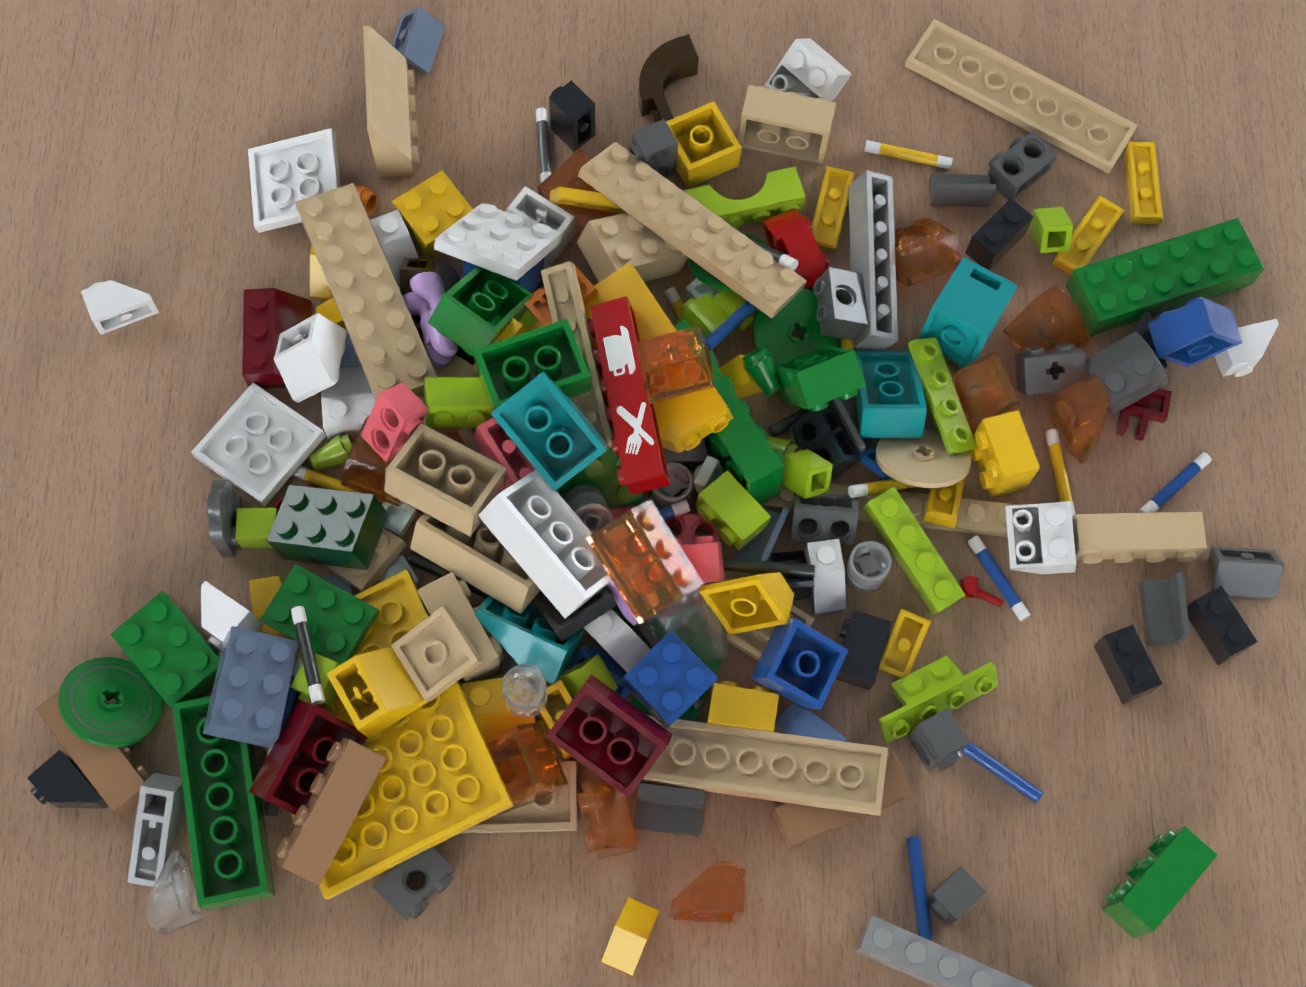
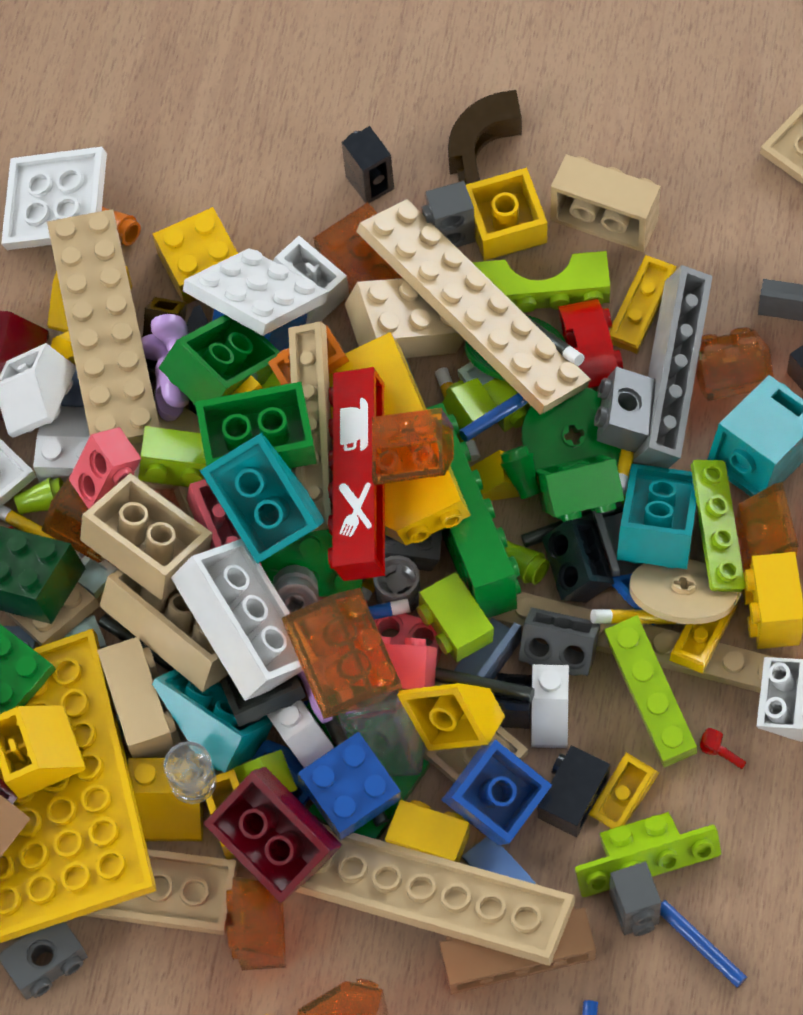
camera: 20 degrees right, 5 degrees down
(389, 107) = (168, 130): tan slope -> none
(394, 240) = (147, 275): white slope -> none
(418, 38) = (215, 61): sand blue panel -> none
(436, 653) = (104, 718): tan plate -> none
(527, 763) = (180, 853): clear orange slope -> none
(543, 143) = (333, 190): dark grey bar -> none
(583, 199) = (357, 257): yellow tile -> none
(669, 809) = (328, 928): dark grey panel -> none
(707, 473) = (436, 571): light aqua plate -> none
(807, 473) = (547, 589): lime brick -> none
(809, 72) = (645, 148): white slope -> none
(867, 567) = (597, 702): light grey wheel -> none
(908, 154) = (743, 254): yellow bar -> none
(999, 578) = (747, 738): blue bar -> none

